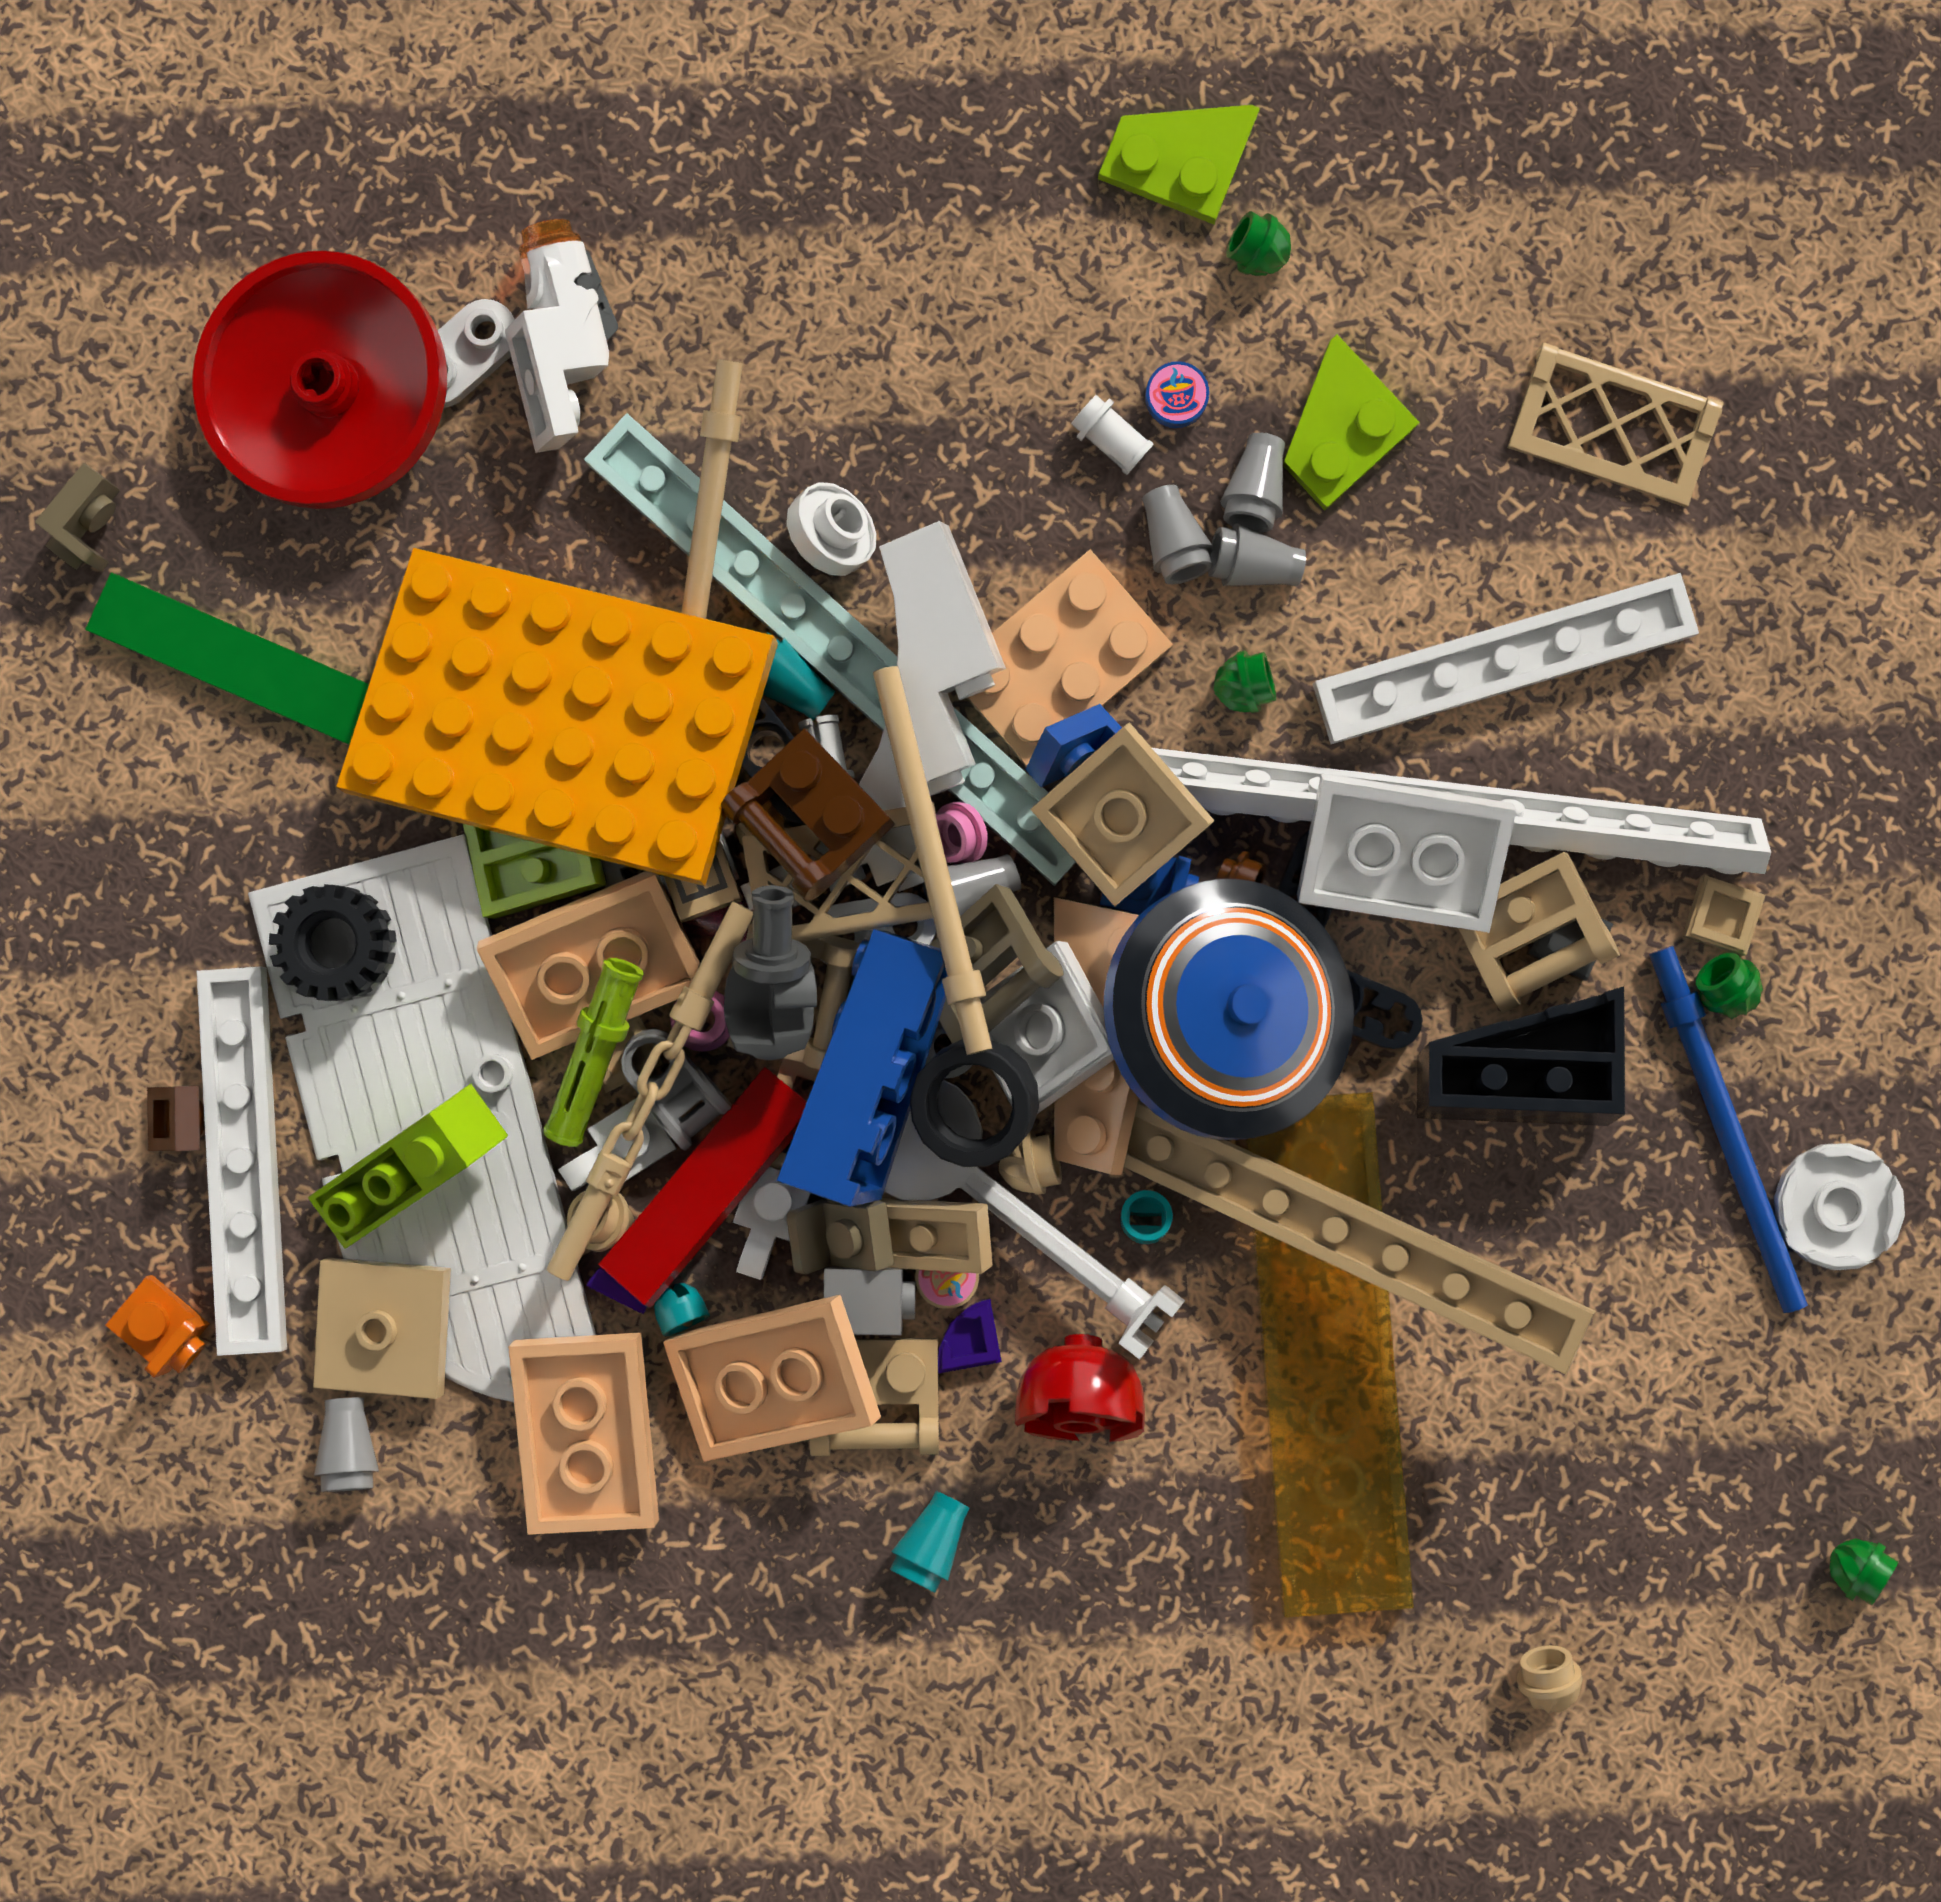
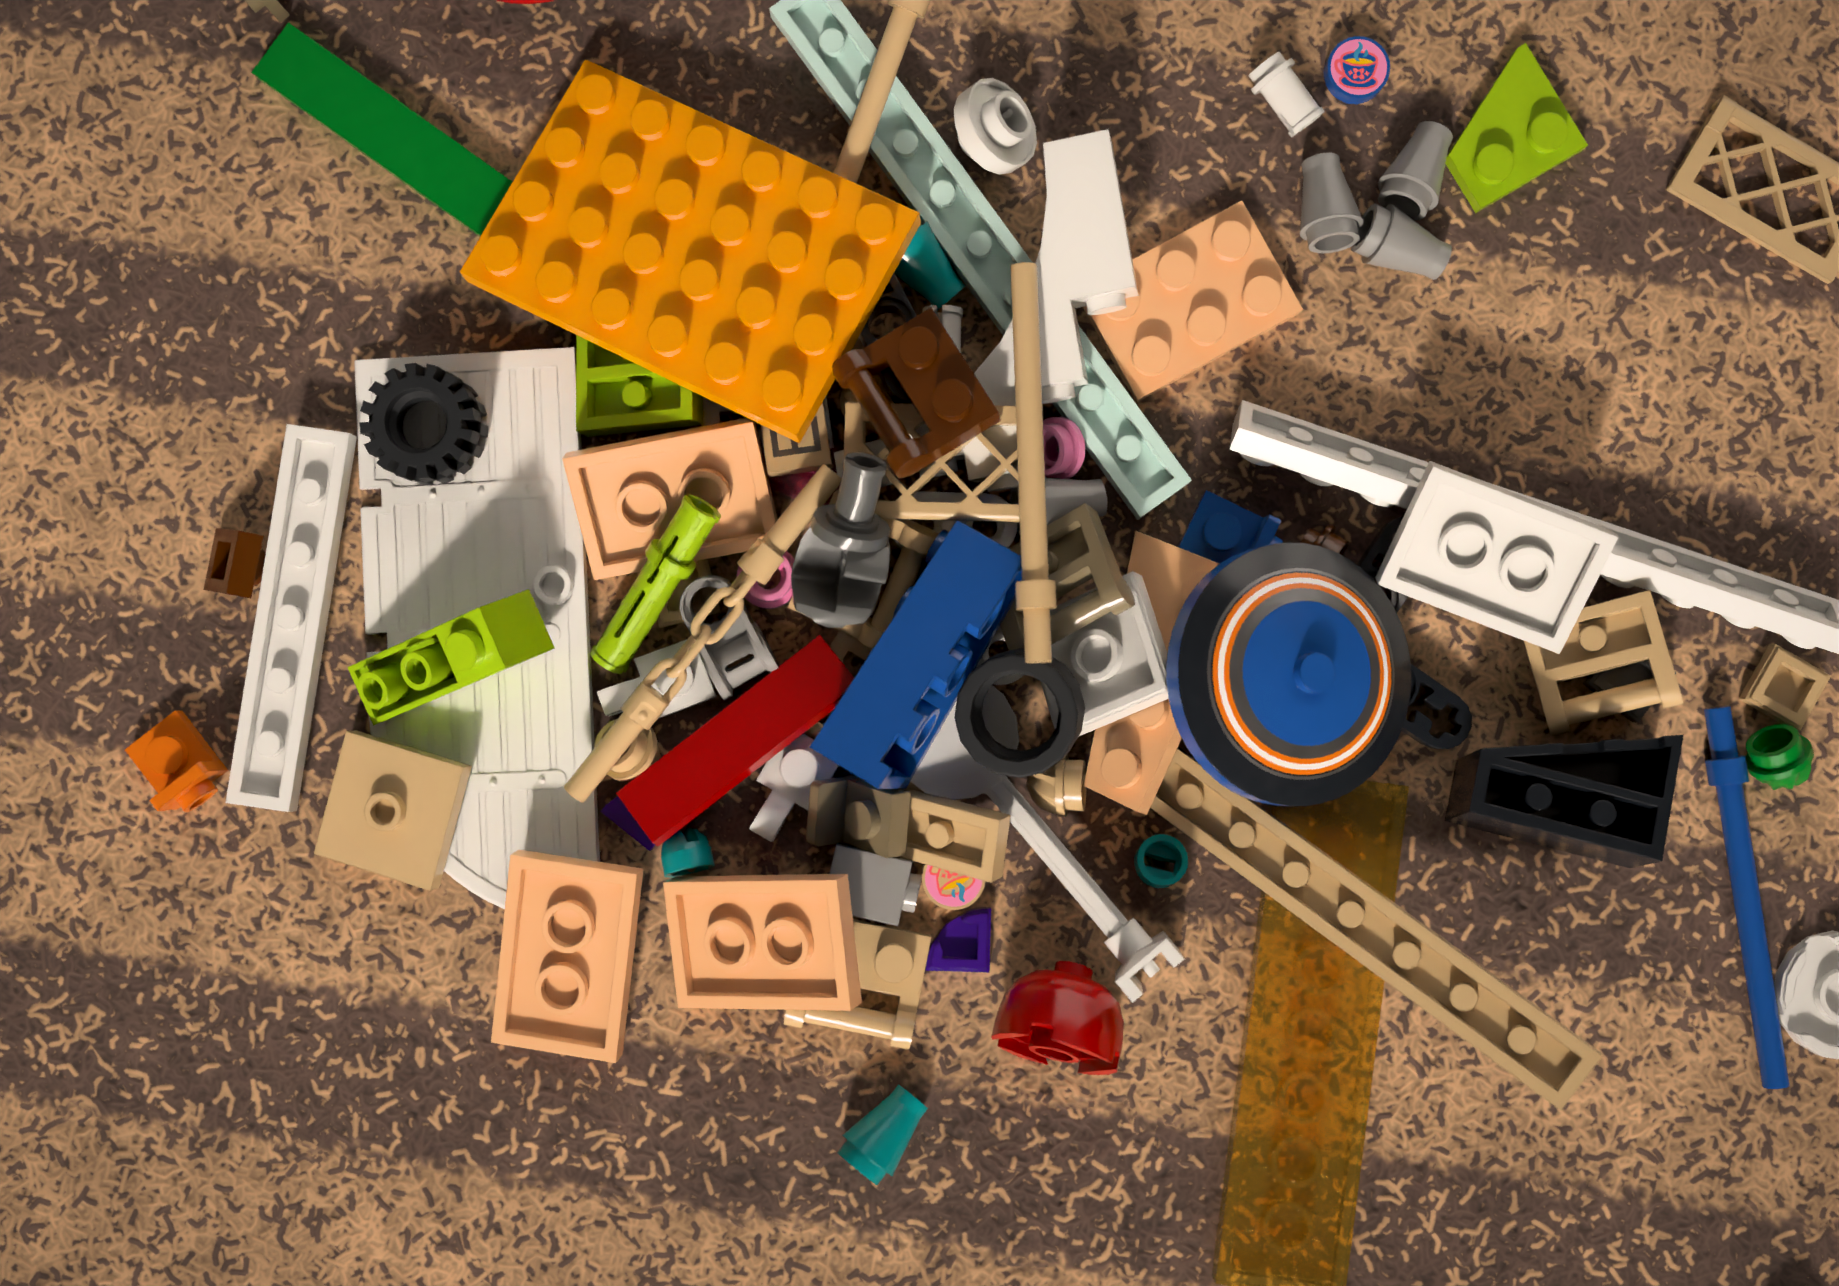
camera: 10 degrees right, 0 degrees up
(345, 1447) = (332, 919): light grey cone -> none
(1070, 743) = (1199, 386): blue bracket -> none
(1122, 814) = (1224, 460): tan plate -> none
(1245, 682) = (1365, 361): green plate -> none
(1505, 658) = (1625, 391): white plate -> none

